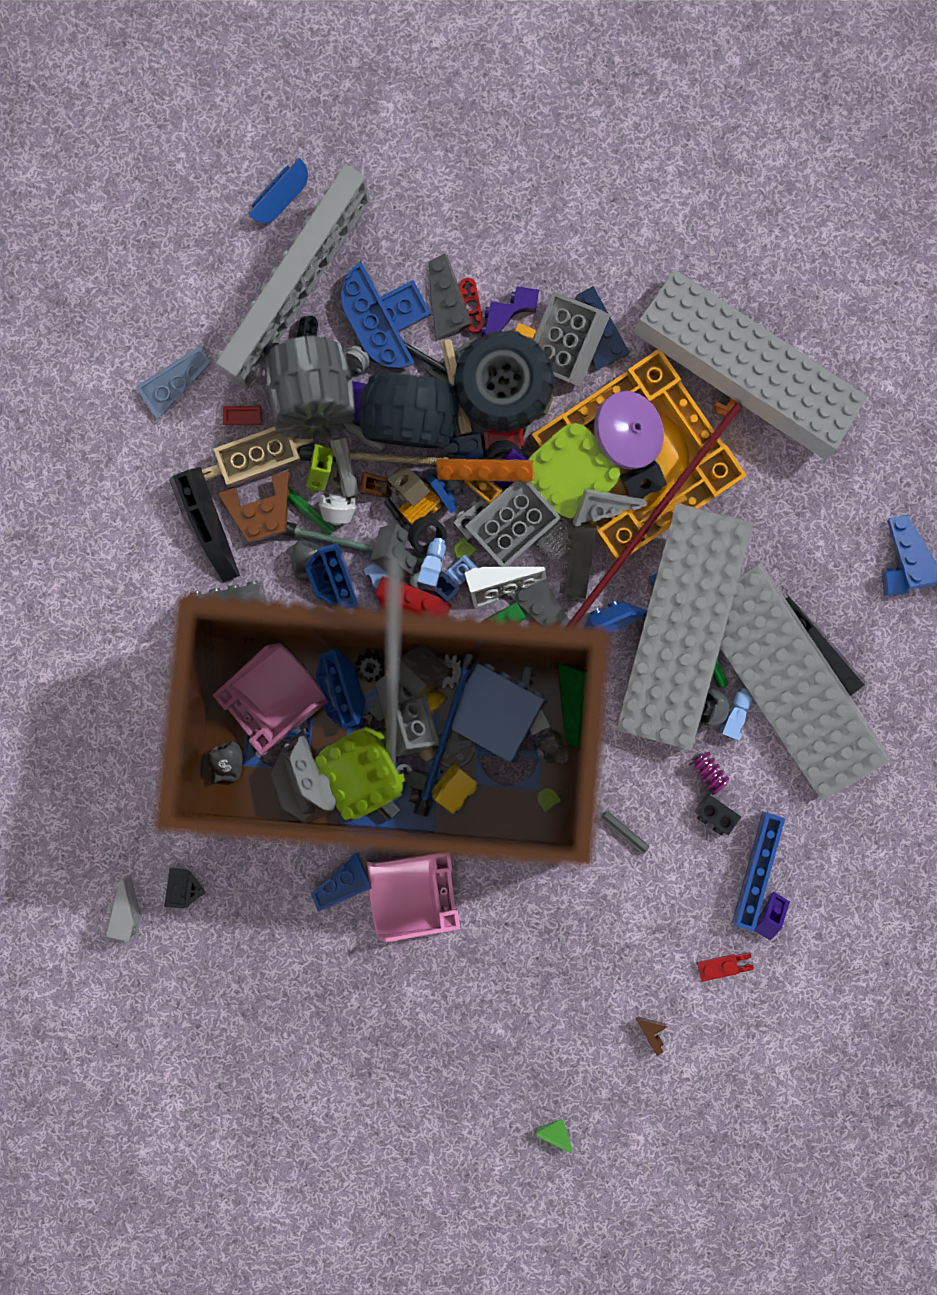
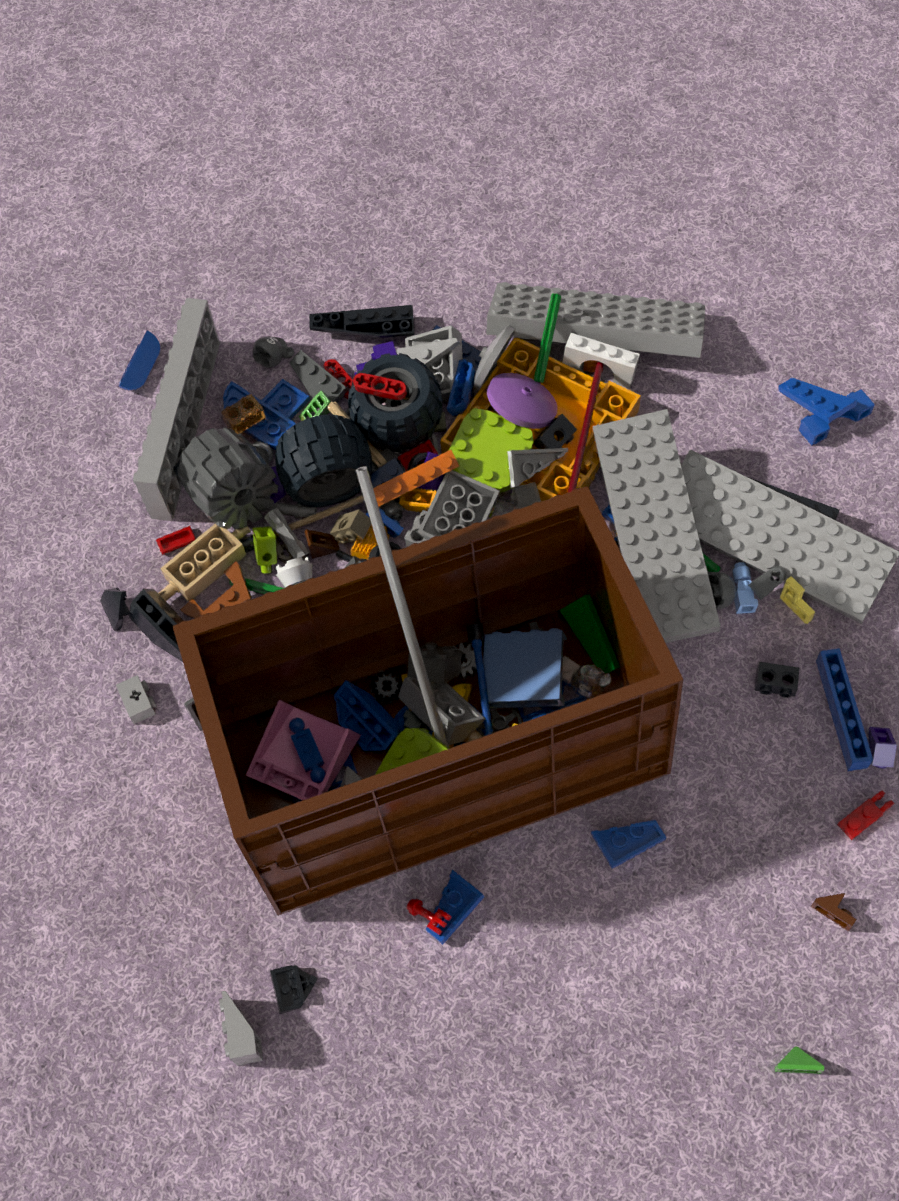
camera: 20 degrees left, 25 degrees down
(141, 577) = (137, 709): none -> light grey brick
(159, 463) = (115, 606): none -> black slope
(168, 384) = (101, 539): sand blue wing -> none
(276, 694) = (307, 750): none -> blue plate
(311, 870) = (416, 907): none -> red hinge
(356, 317) = (243, 417): none -> clear orange brick
(412, 896) = (525, 881): bright pink windscreen -> none
(416, 239) = (270, 351): none -> dark grey piece
(444, 331) = (317, 401): none -> bright green slope
(482, 358) = (373, 380): none -> red beam
(511, 896) = (628, 841): none -> blue wing
(526, 256) = (370, 322): none -> black wedge
(557, 325) = (430, 352): none -> light grey wing
(580, 382) = (461, 388): none -> blue brick
(624, 366) = (491, 356): none -> light grey dish
(624, 832) = (703, 735): dark grey axle -> none
(686, 373) = (547, 337): none -> green axle
(710, 772) = (748, 645): magenta piece -> none
(746, 431) = (621, 361): none -> white arch
(759, 725) = (766, 583): none -> dark grey piece
(776, 750) = (792, 597): none -> light yellow tile

